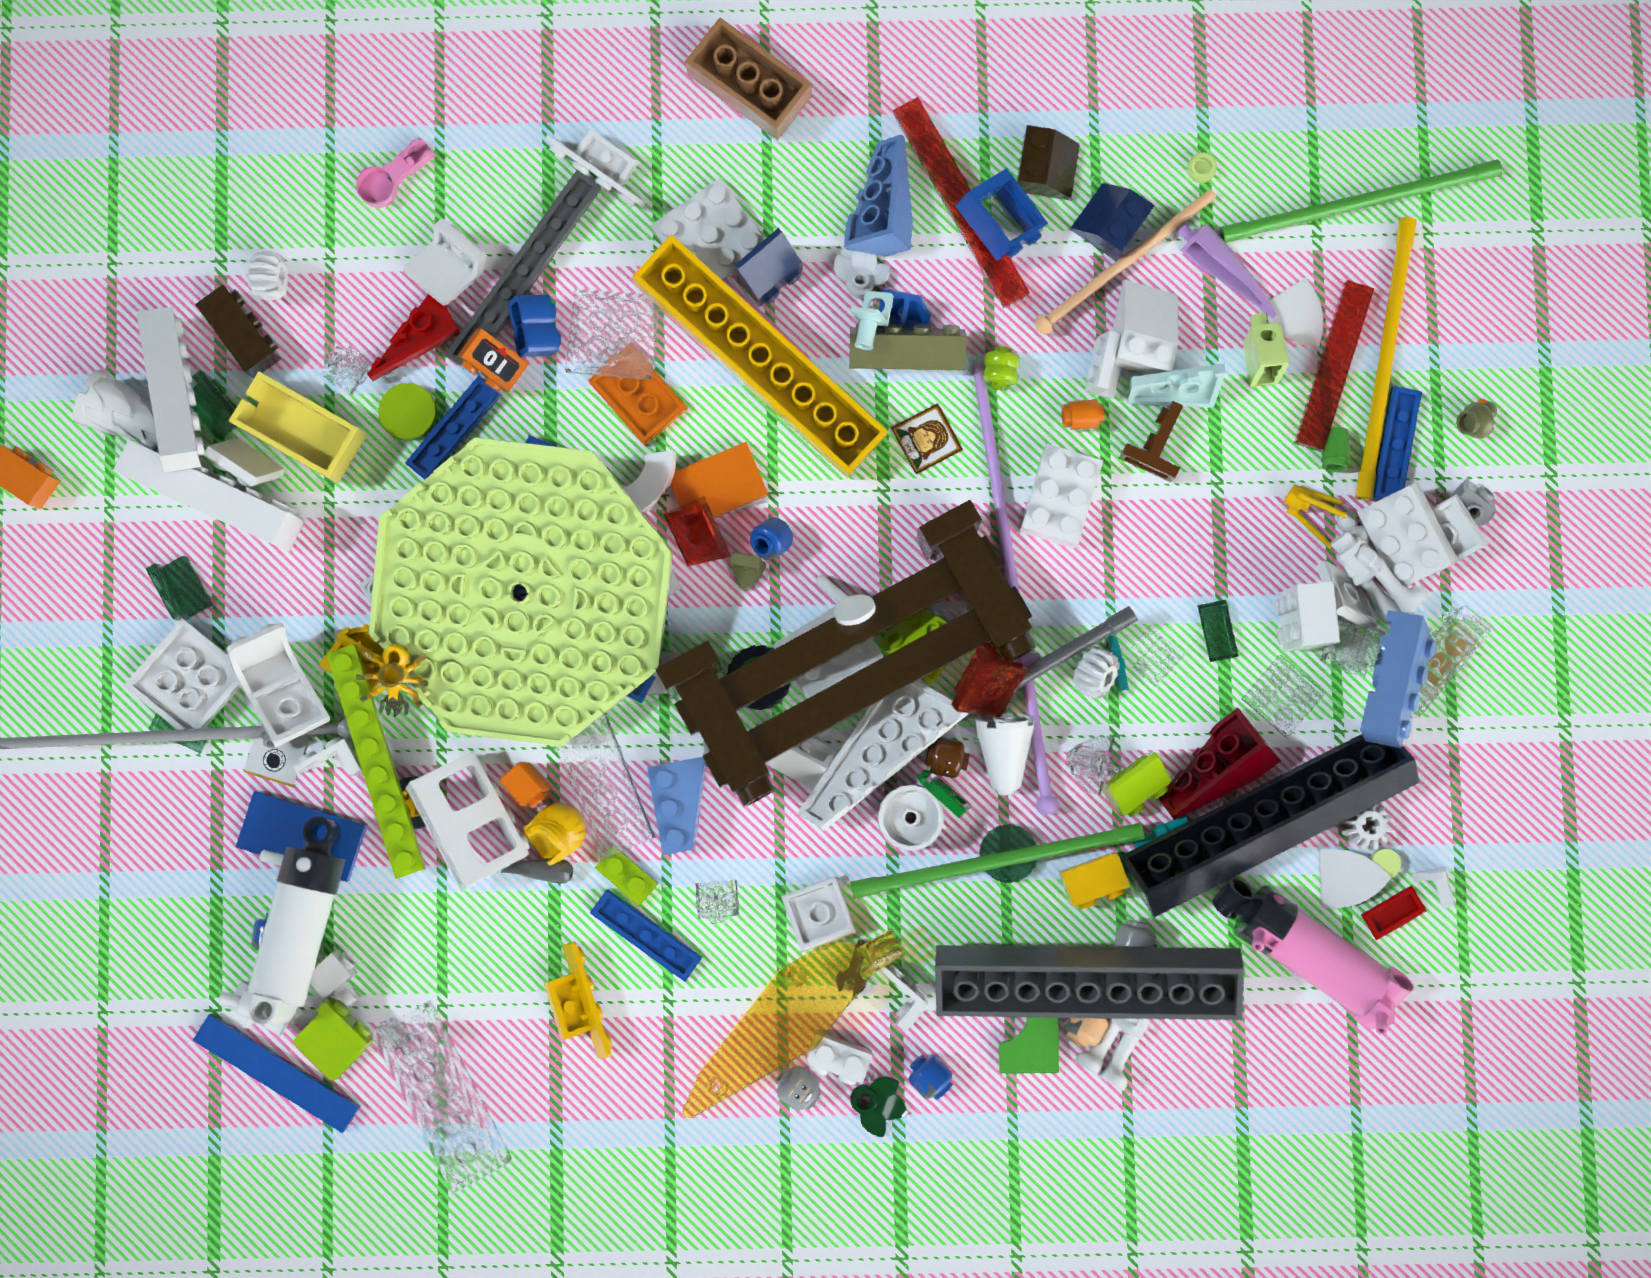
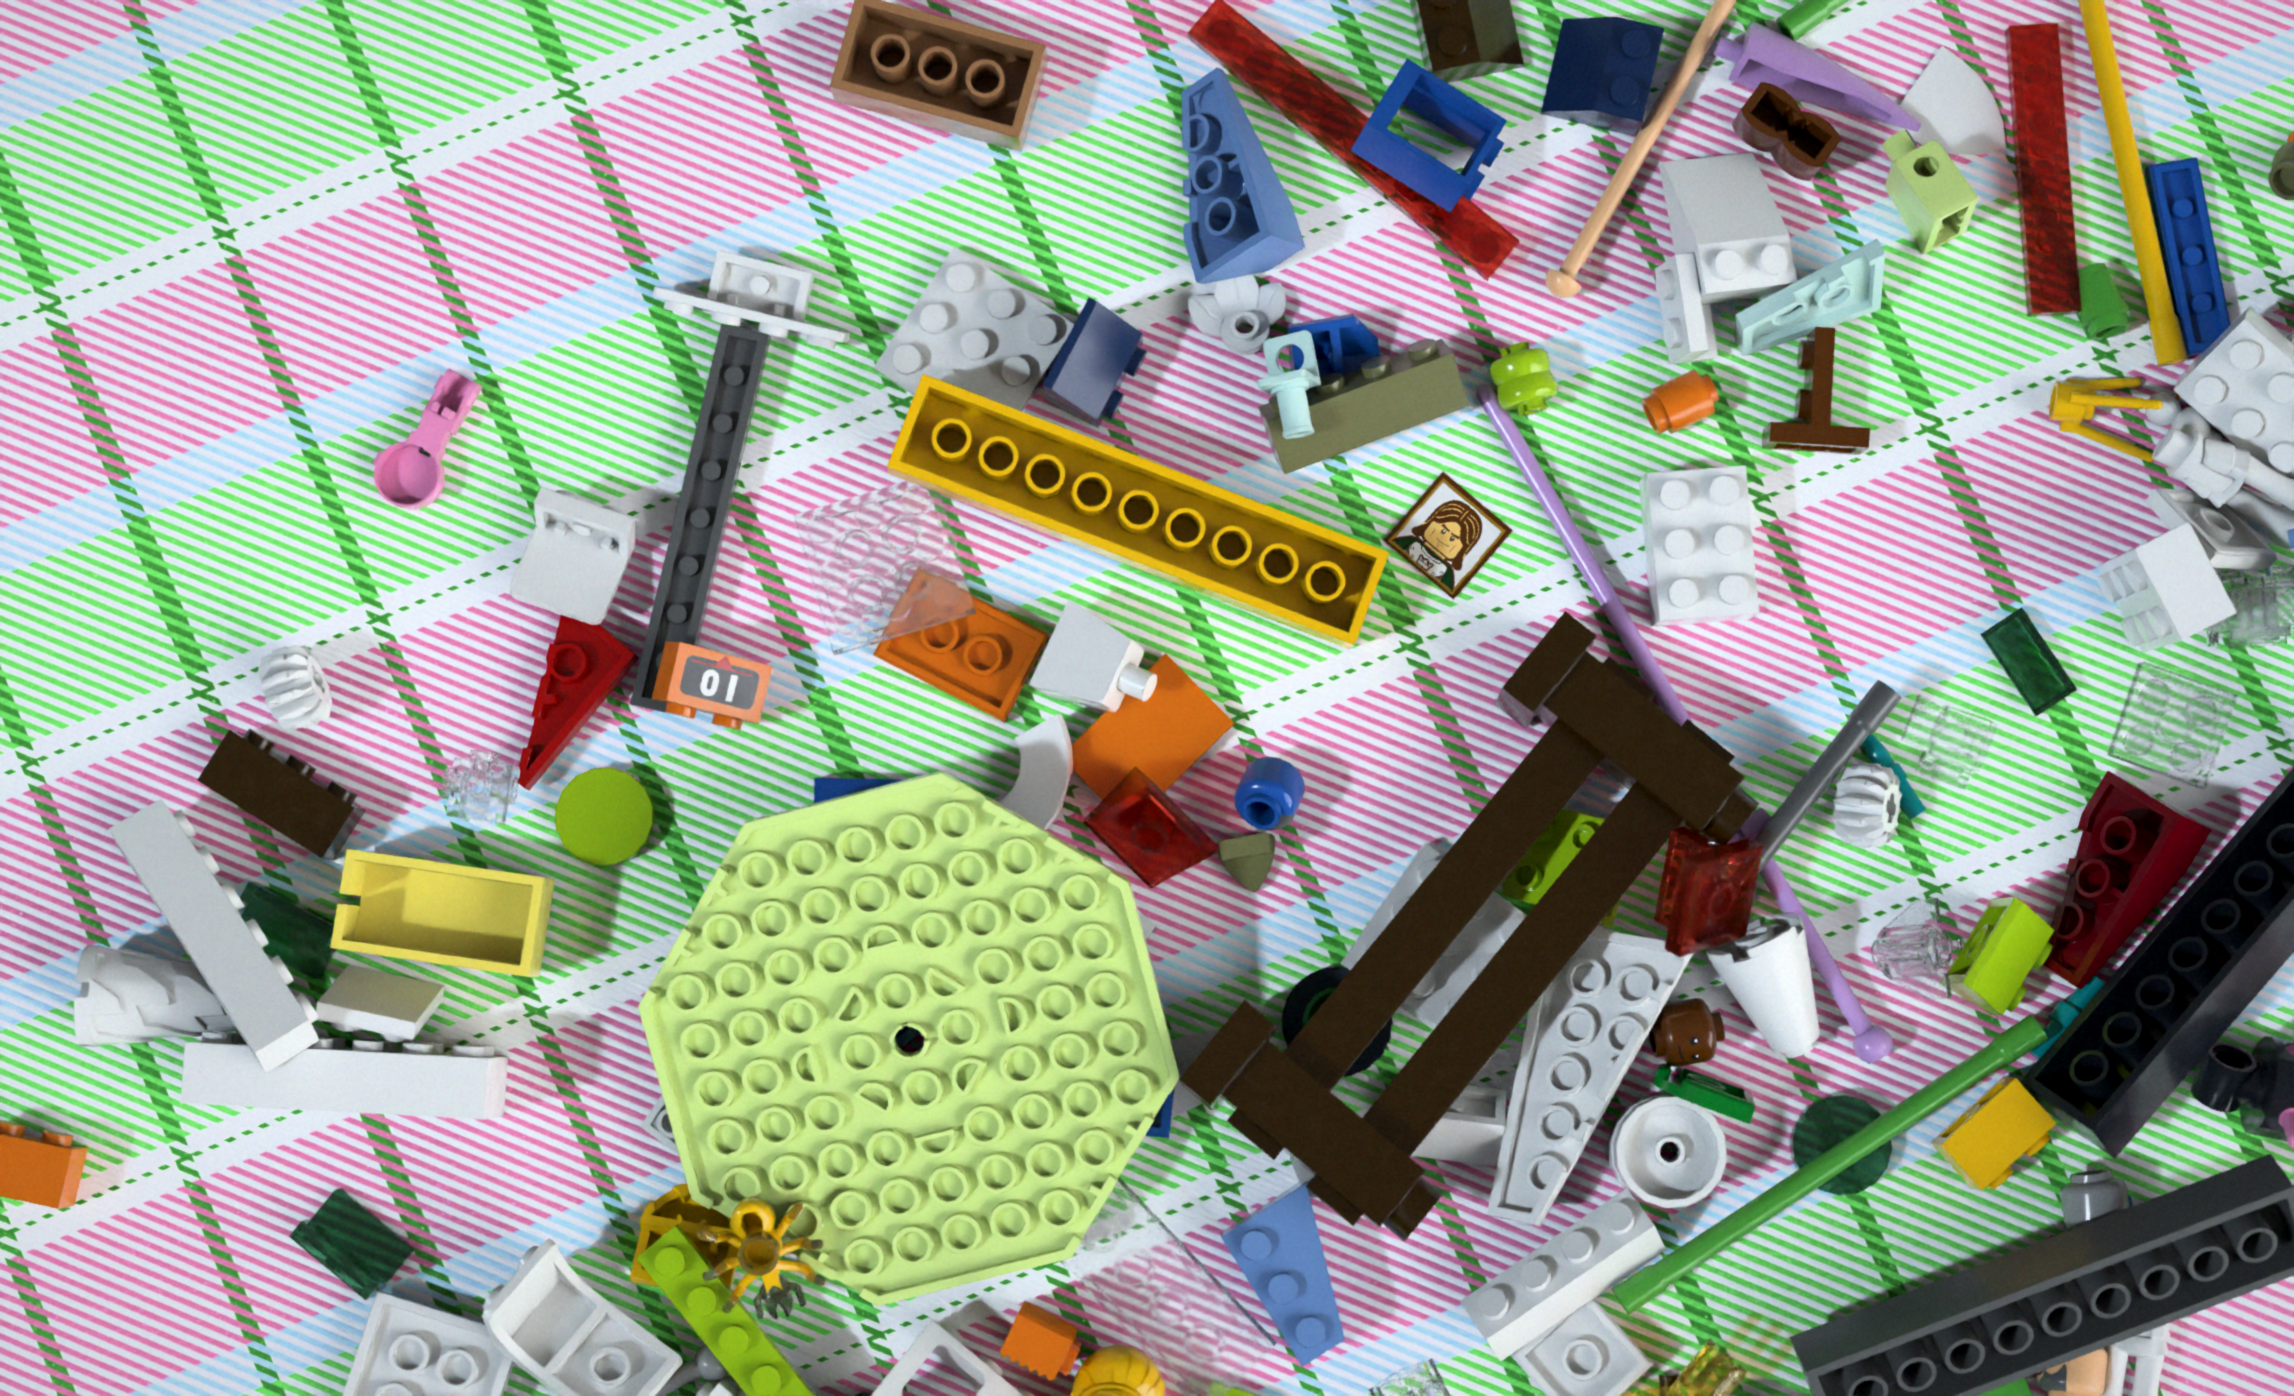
camera: 20 degrees left, 0 degrees up
(453, 428) = (688, 816): blue tile -> none
(534, 325) = (755, 601): blue brick -> none
(702, 430) = (1091, 663): none -> white torso
(826, 862) = (1563, 1274): none -> white brick
(850, 609) = (1445, 861): white piece -> none
(1195, 283) = (1794, 137): none -> reddish brown brick

